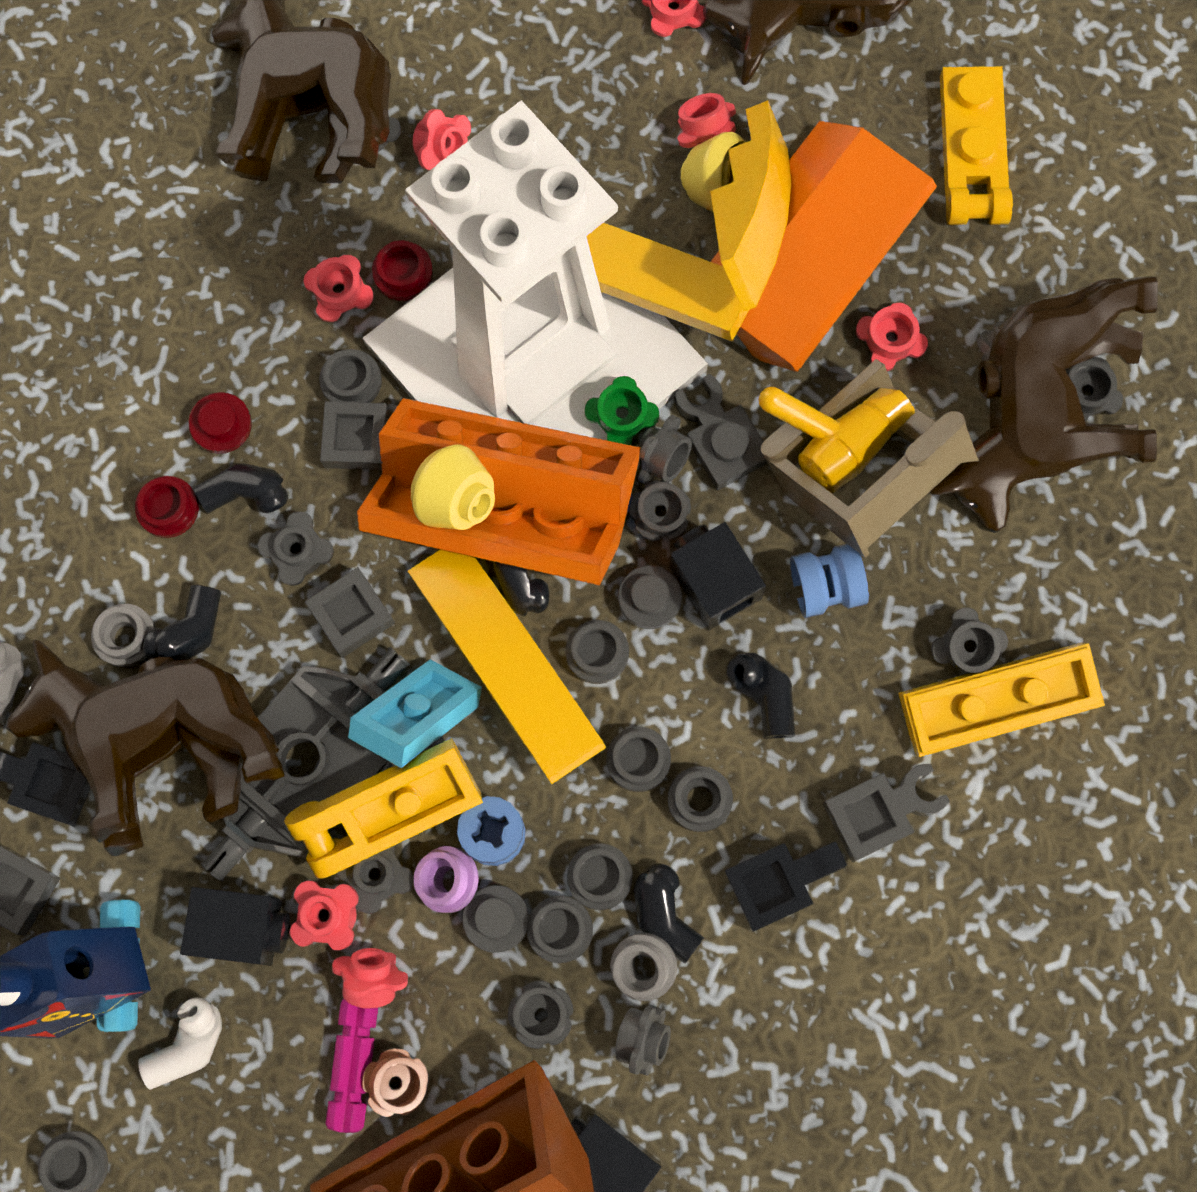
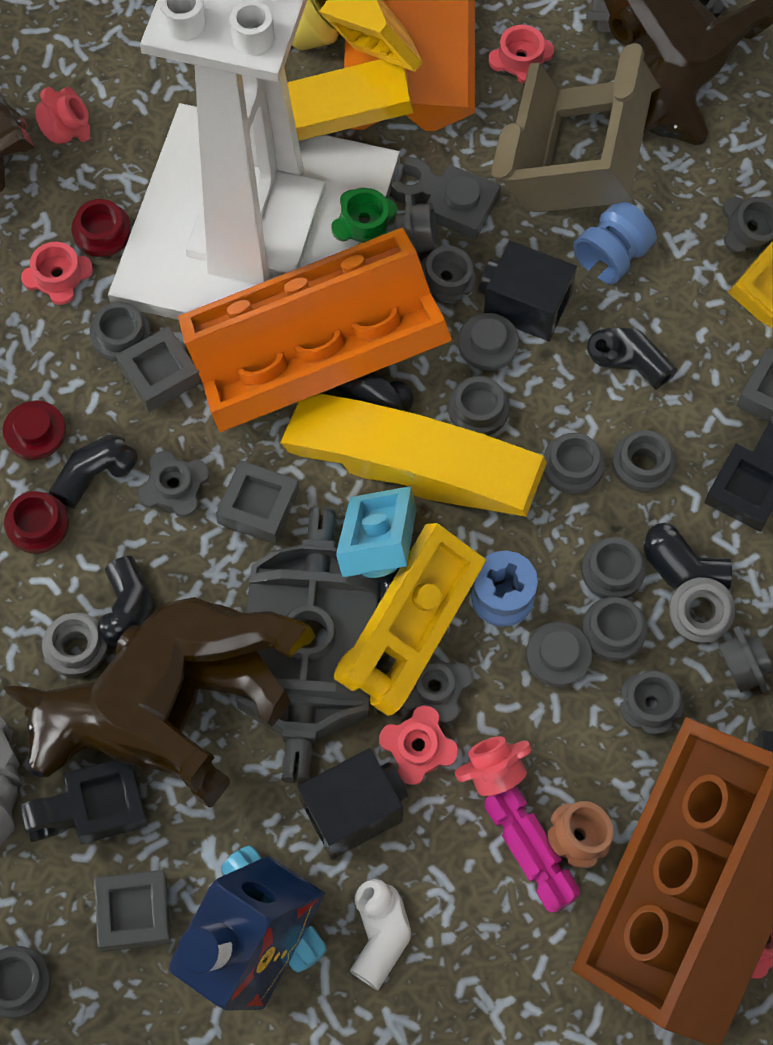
camera: 40 degrees left, 10 degrees down
(430, 874) = (478, 644): lavender plate -> none
(452, 489) = (284, 339): light yellow cone -> none
(842, 445) = (557, 130): yellow piece -> none

